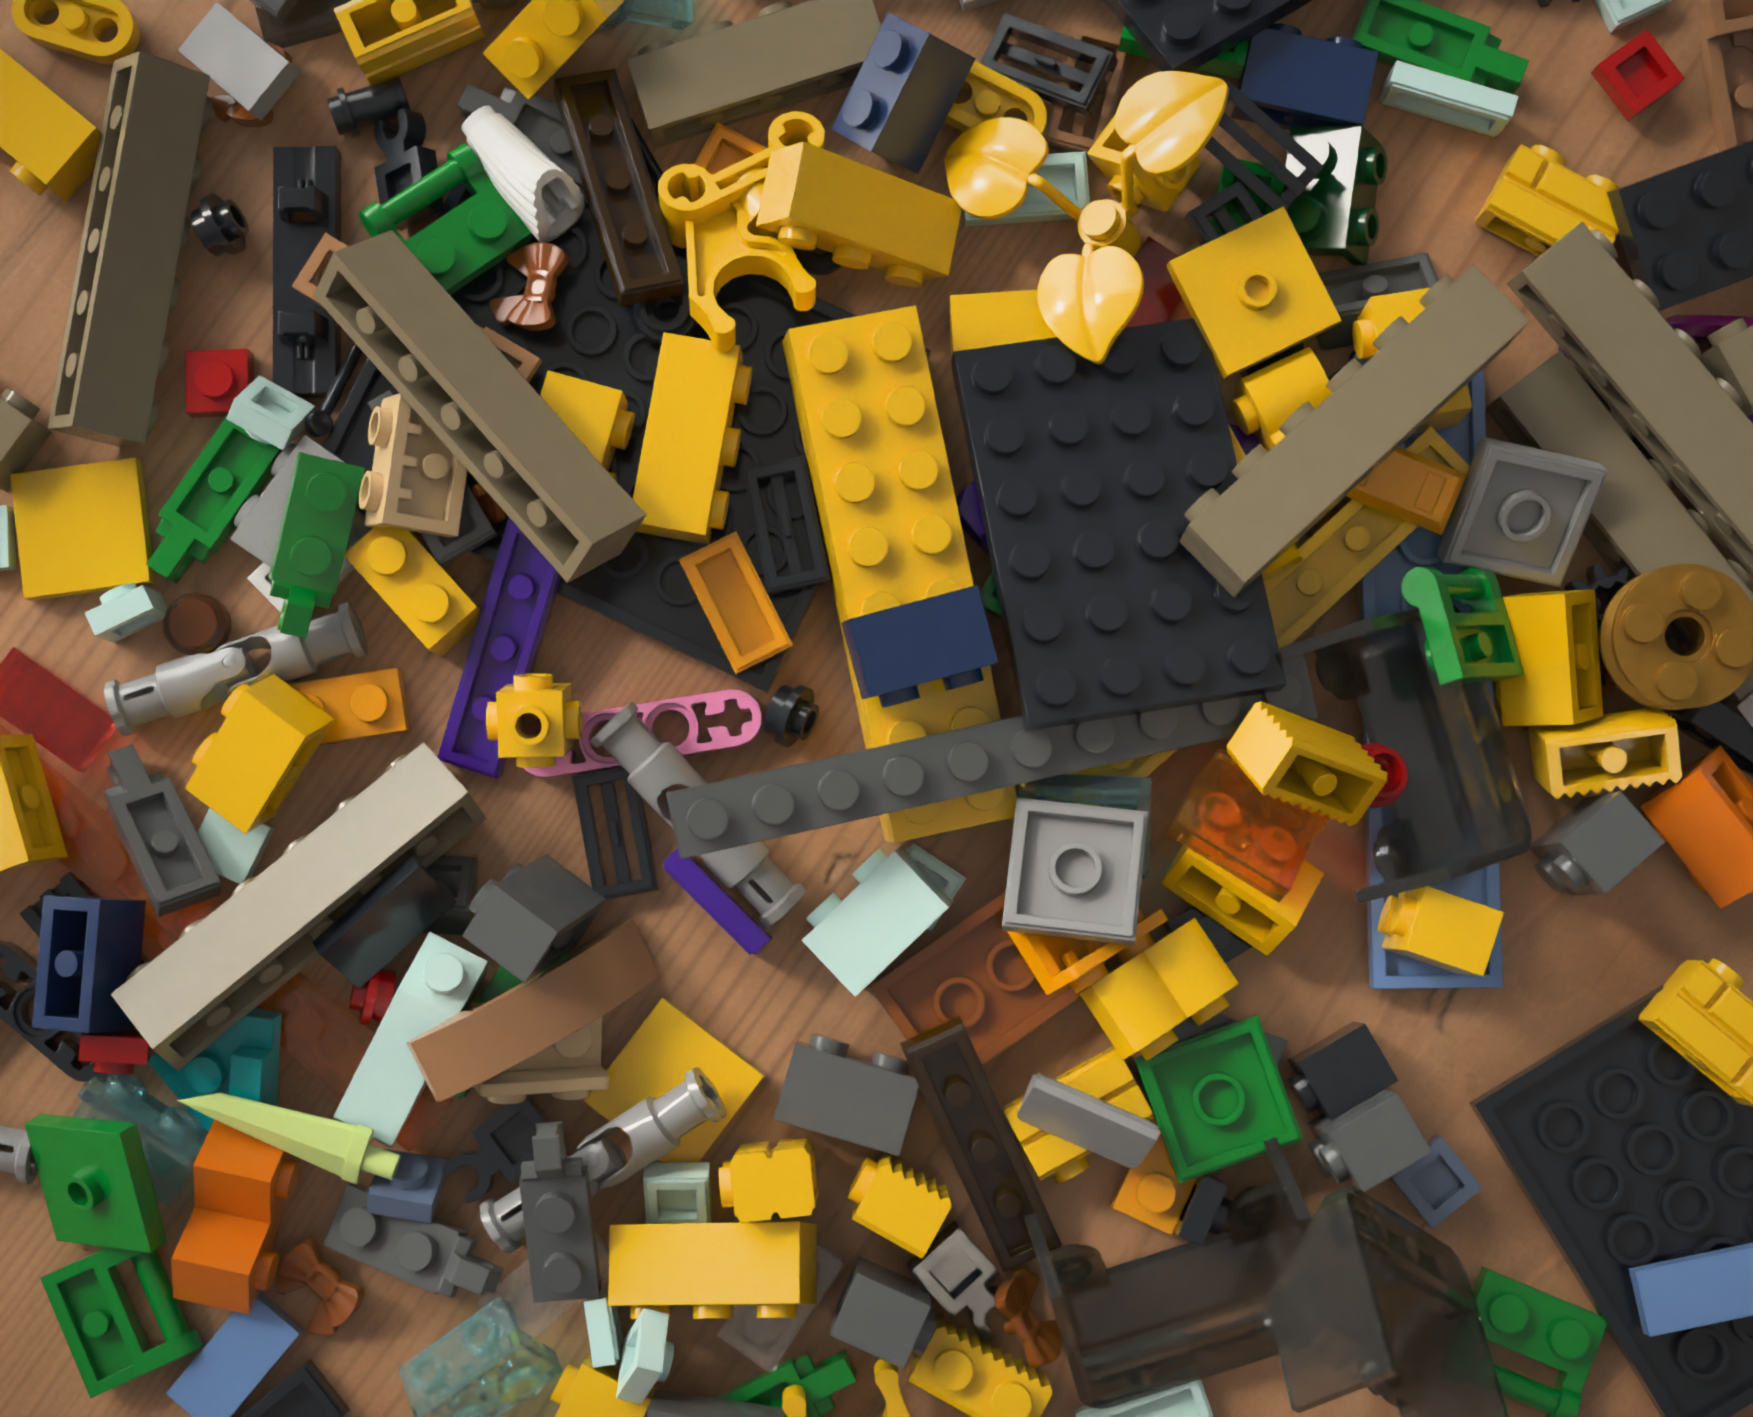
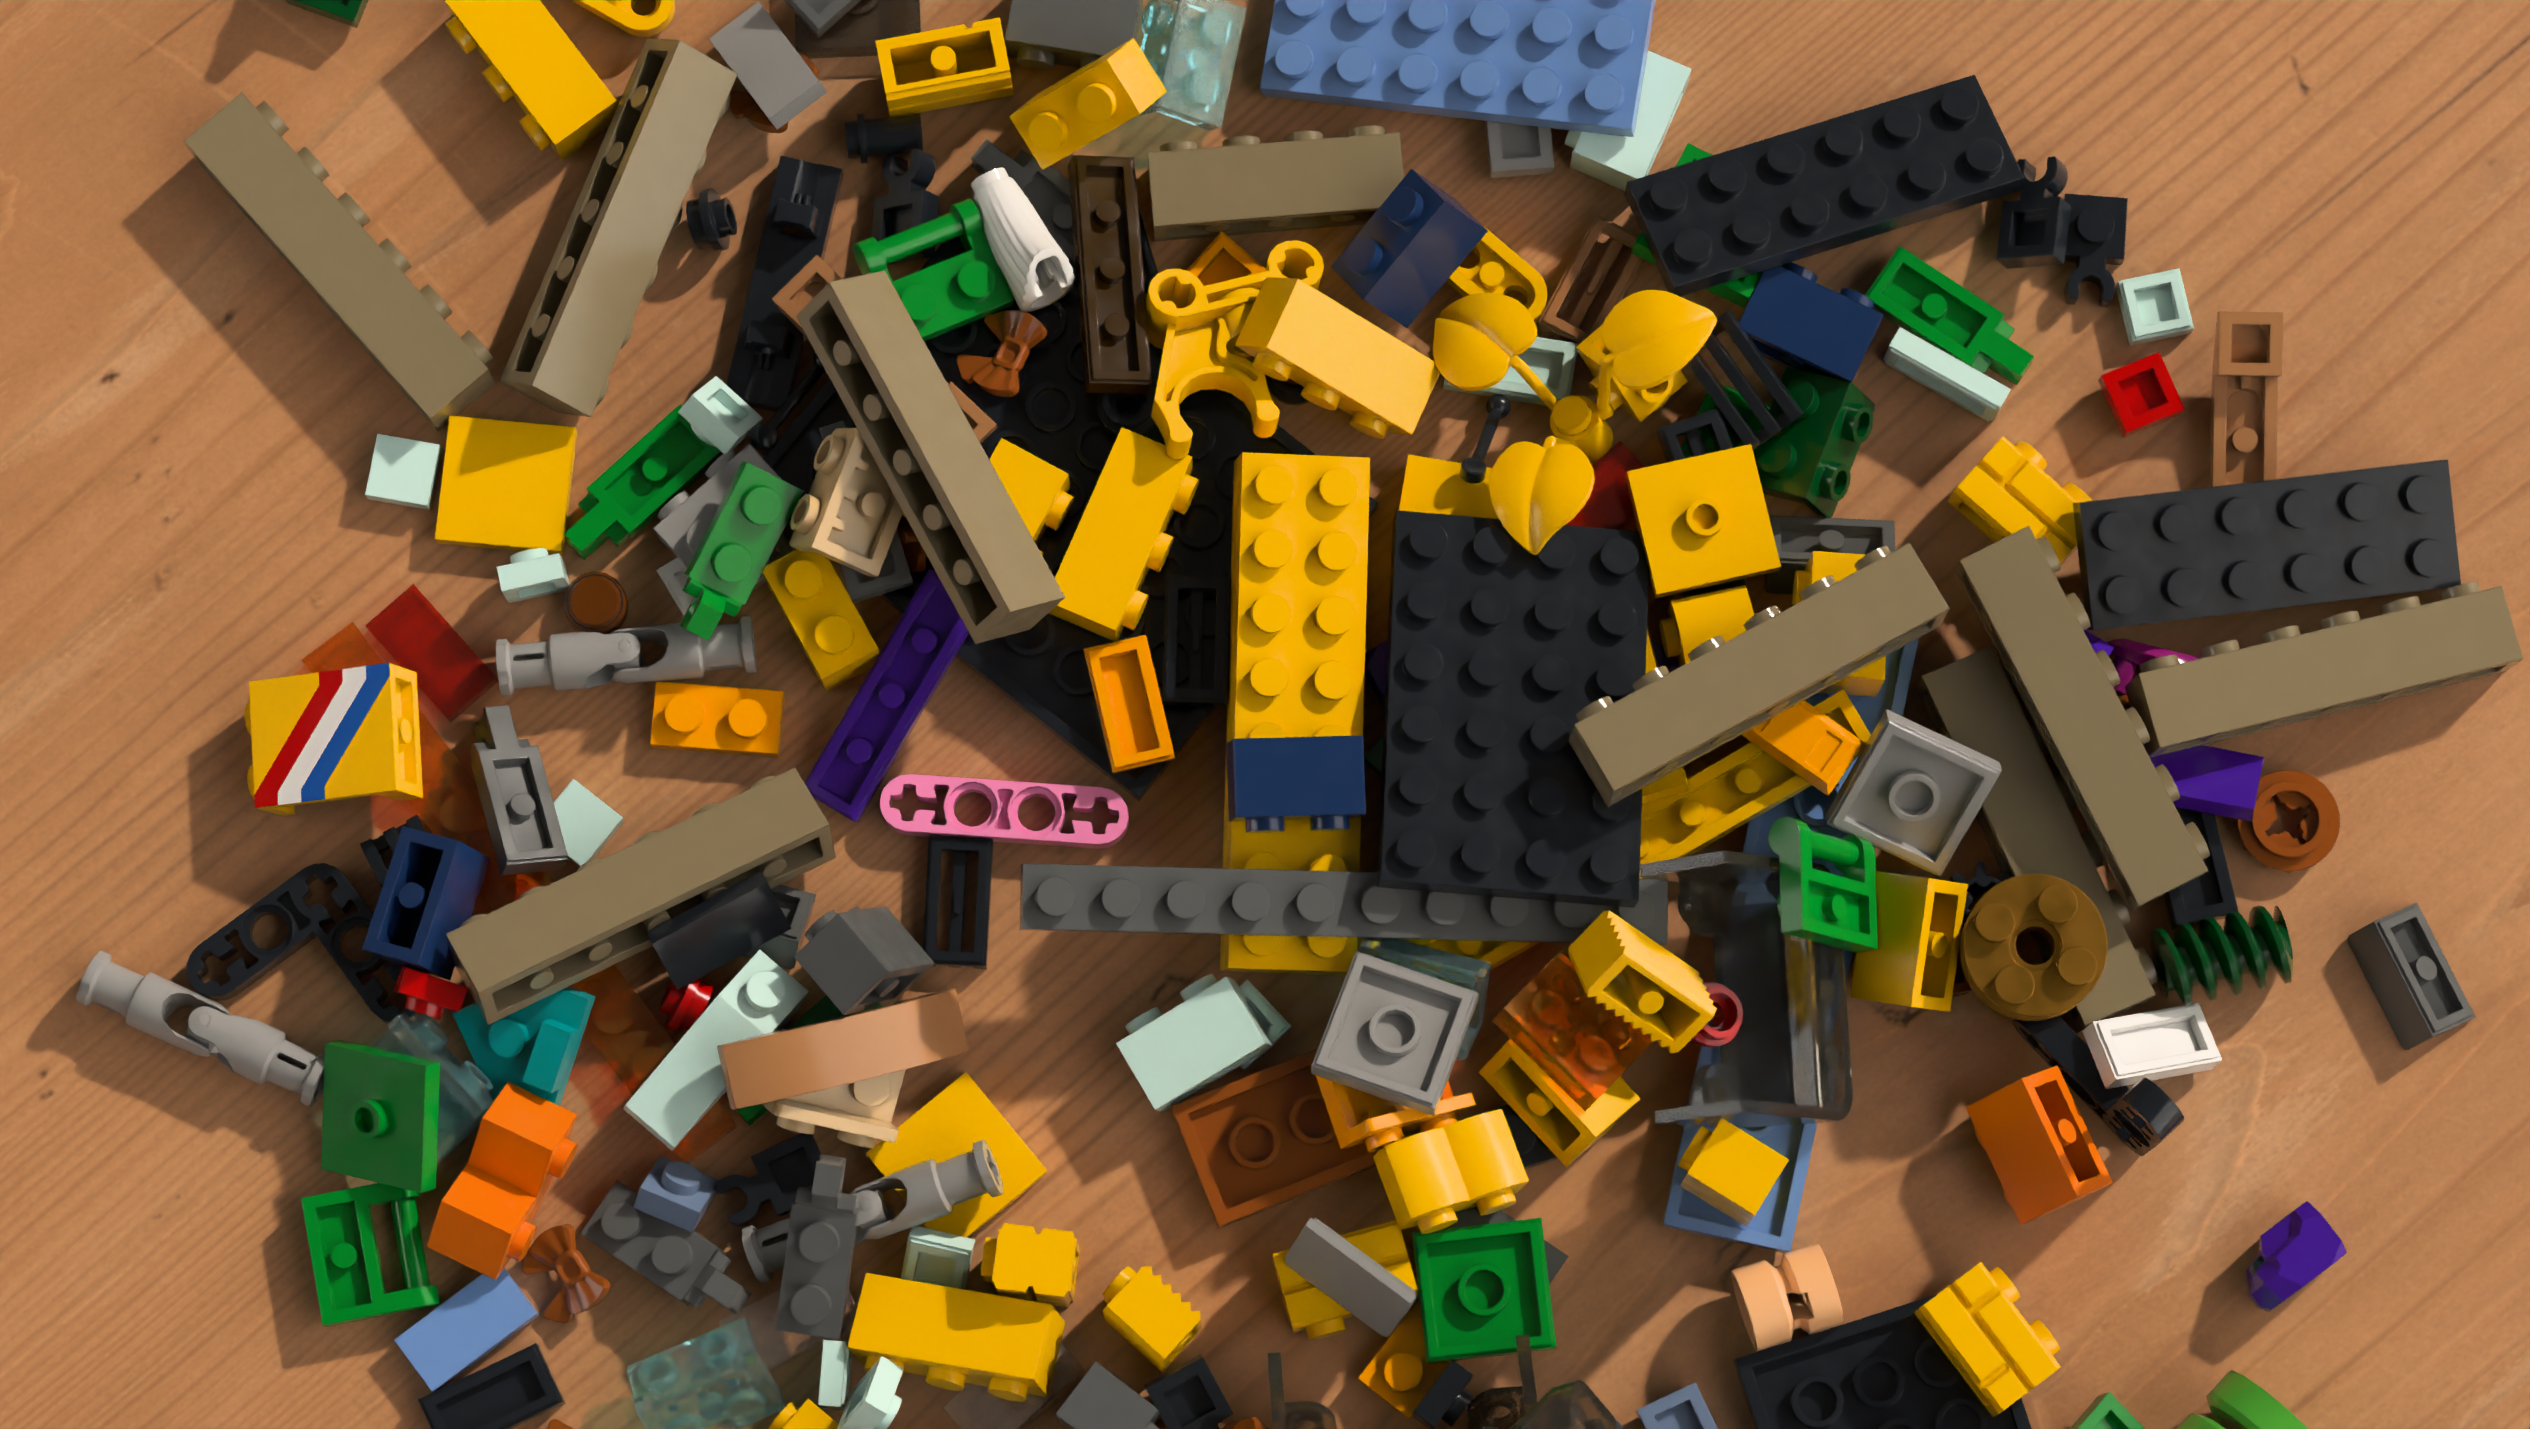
camera: 10 degrees right, 5 degrees down
(215, 380) = (671, 371): red plate -> none
(257, 752) = (631, 740): yellow brick -> none
(318, 1140) = (606, 1125): yellowish green bar -> none
(550, 703) = (934, 770): yellow brick -> none
(659, 765) = (1069, 954): light grey piece -> none
(717, 903) = (1042, 990): dark purple tile -> none
(791, 714) = (1157, 826): black plate -> none
(848, 1095) = (1125, 1206): dark grey brick -> none
(979, 1140) = (1242, 1277): dark brown tile -> none
(1018, 294) = (1474, 468): none -> black hinge
(1091, 83) = (1597, 278): black tile -> none
(1340, 1071) = (1611, 1297): black brick -> none
(1368, 1142) = (1619, 1359): dark grey brick -> none
(1511, 1032) = (1764, 1302): none -> light nougat wheel
(1595, 845) = (1907, 1132): dark grey brick -> none
(1606, 752) = (1942, 1045): yellow brick -> none

